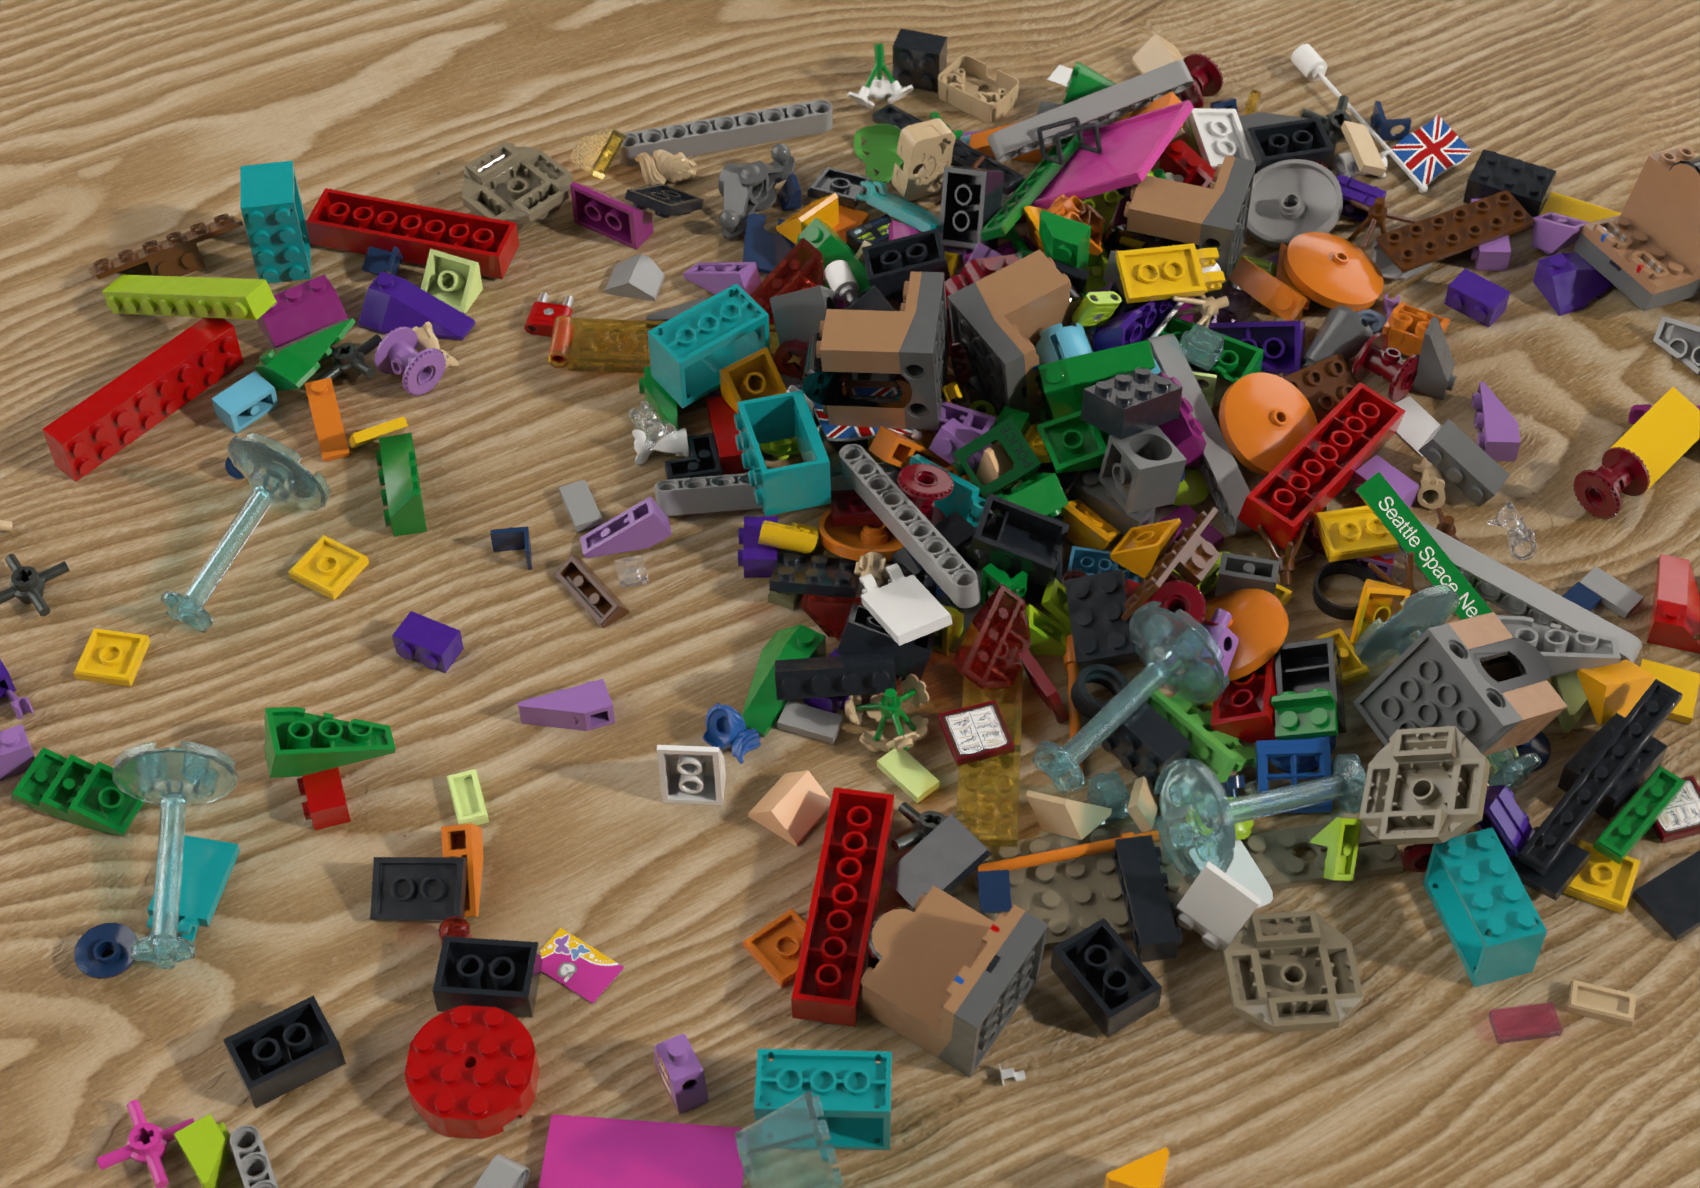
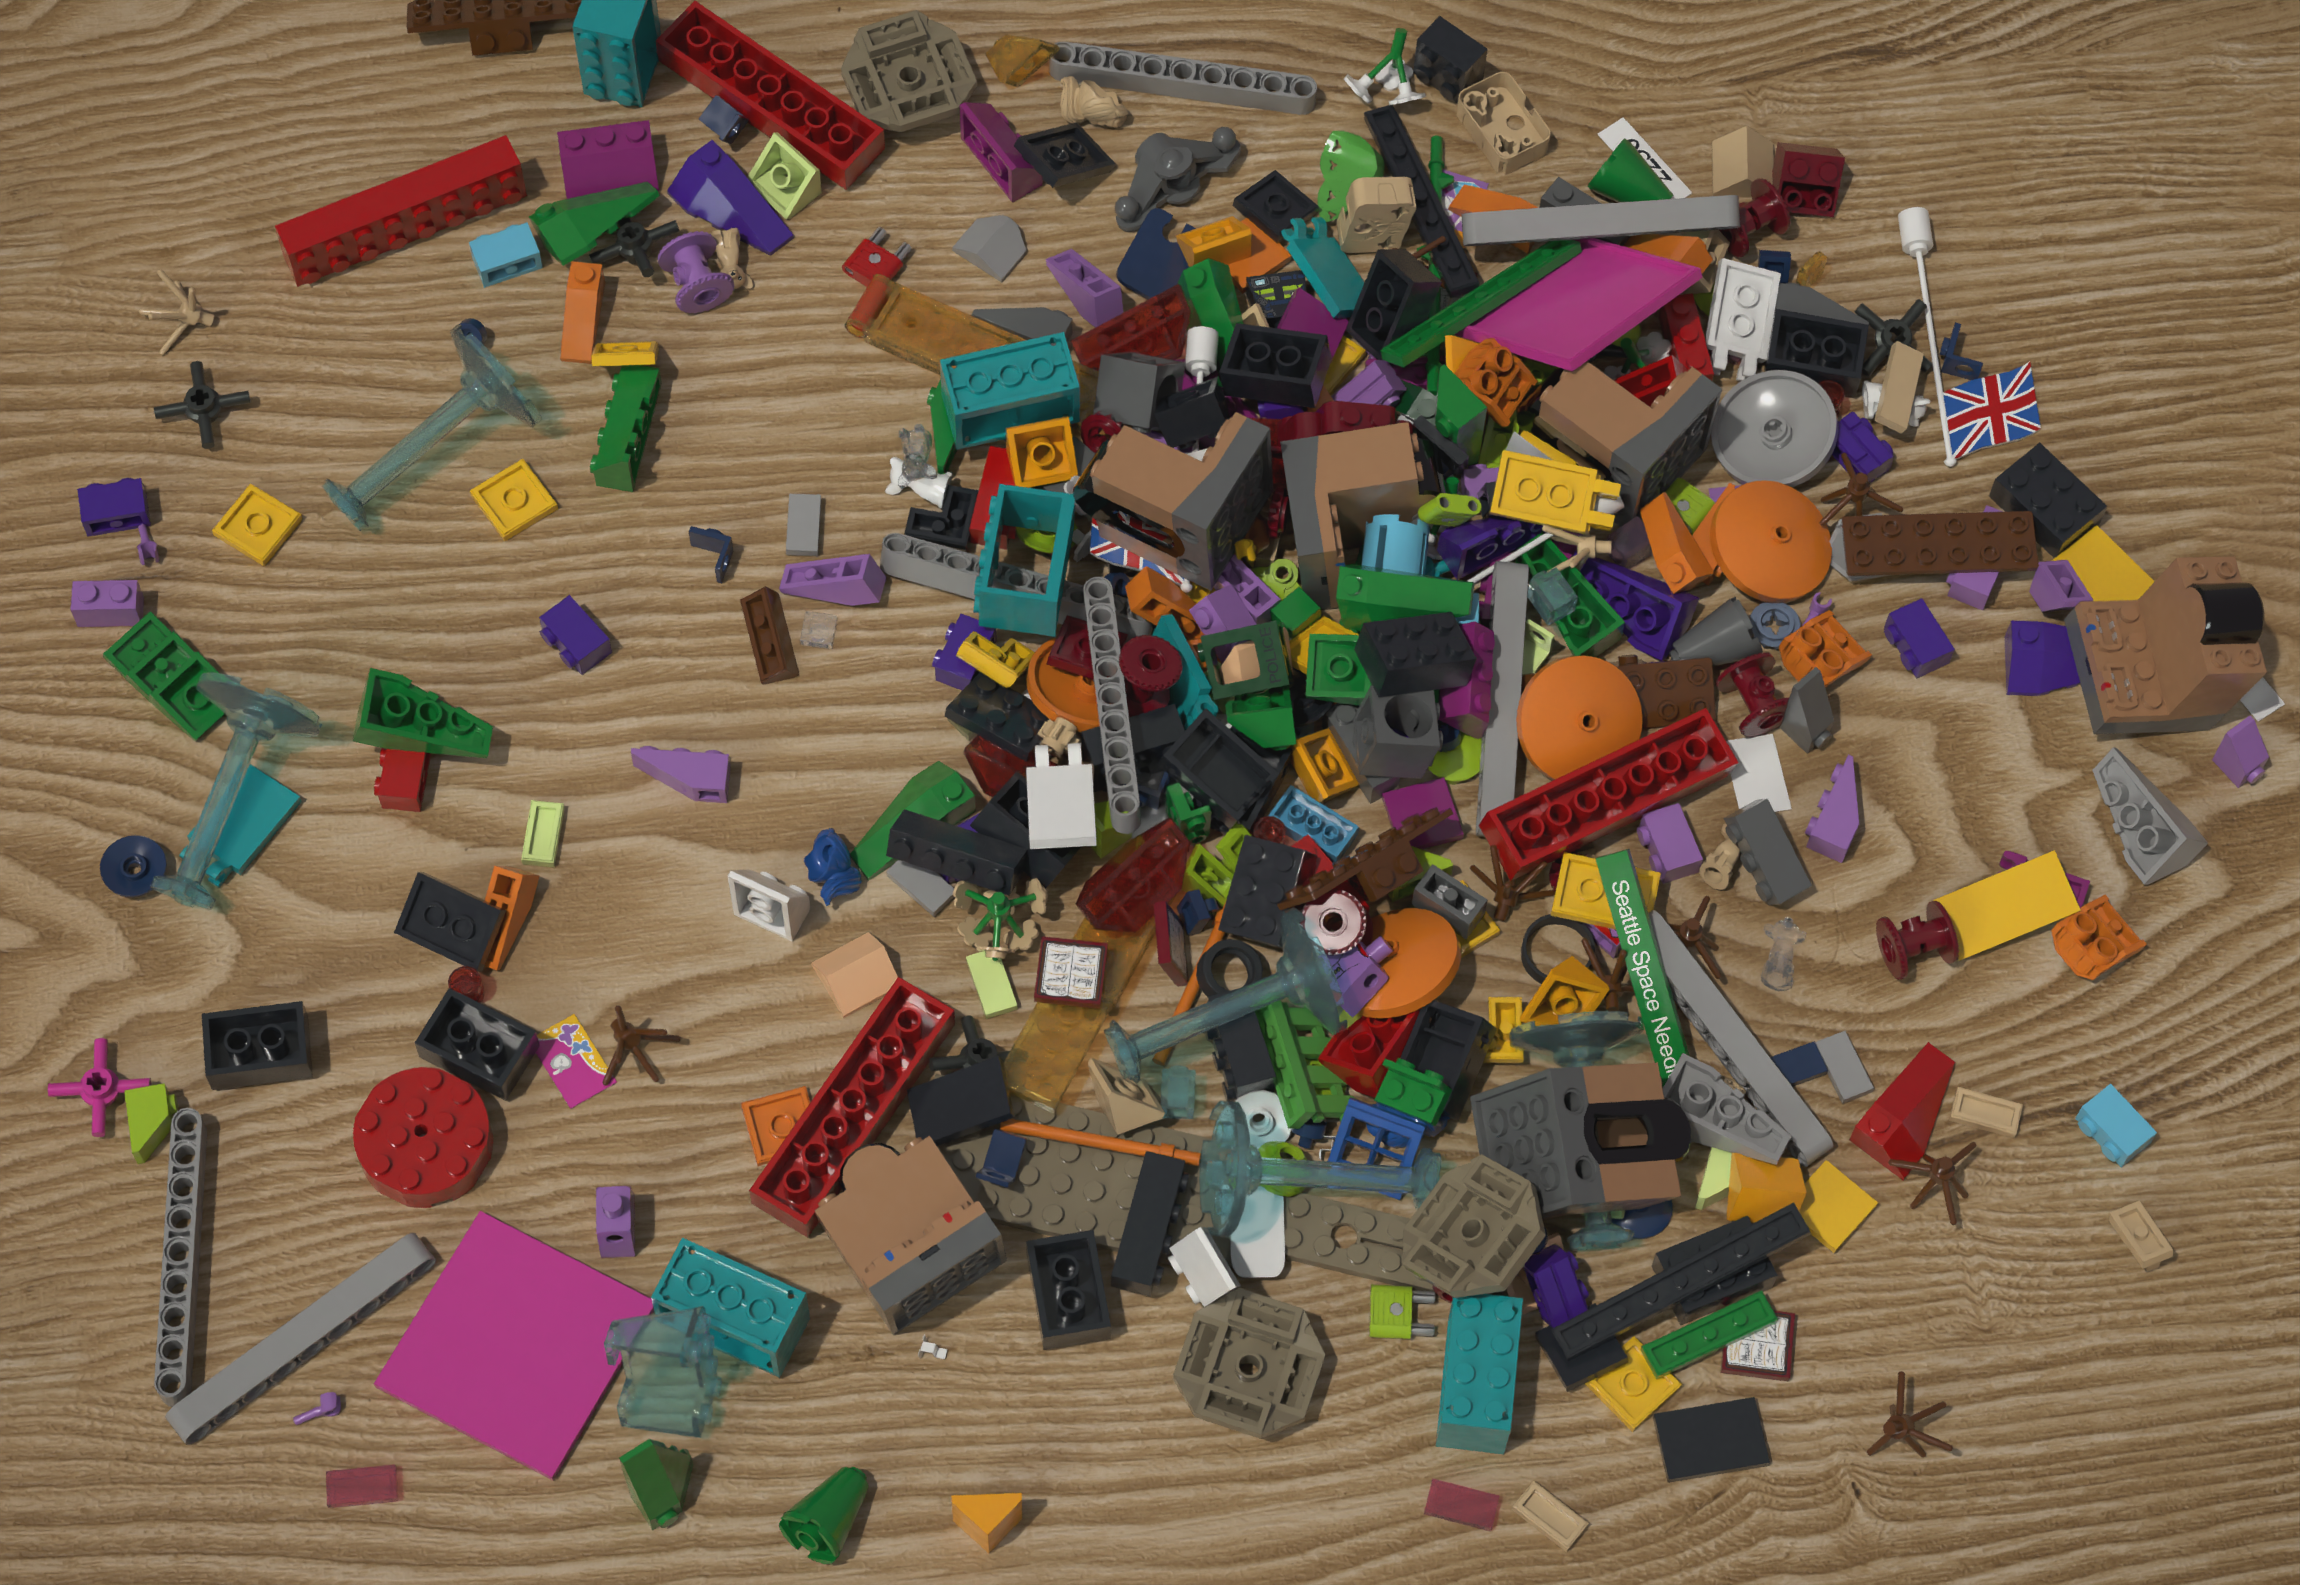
camera: 20 degrees right, 15 degrees up
(189, 296) = (487, 106): lime brick -> none
(620, 925) = (629, 1038): none -> reddish brown plant
(790, 194) = (1215, 194): dark blue slope -> none
(1049, 659) = (1196, 911): none -> dark blue tile
(1078, 129) = (1572, 260): black piece -> none
(1143, 804) = (1195, 1123): tan tile -> none
(1145, 546) = (1361, 819): light orange slope -> none
(1221, 46) = (1808, 177): none -> dark red slope
(1342, 842) = (1372, 1250): lime slope -> none
(1379, 896) = (1393, 1312): none -> lime piece

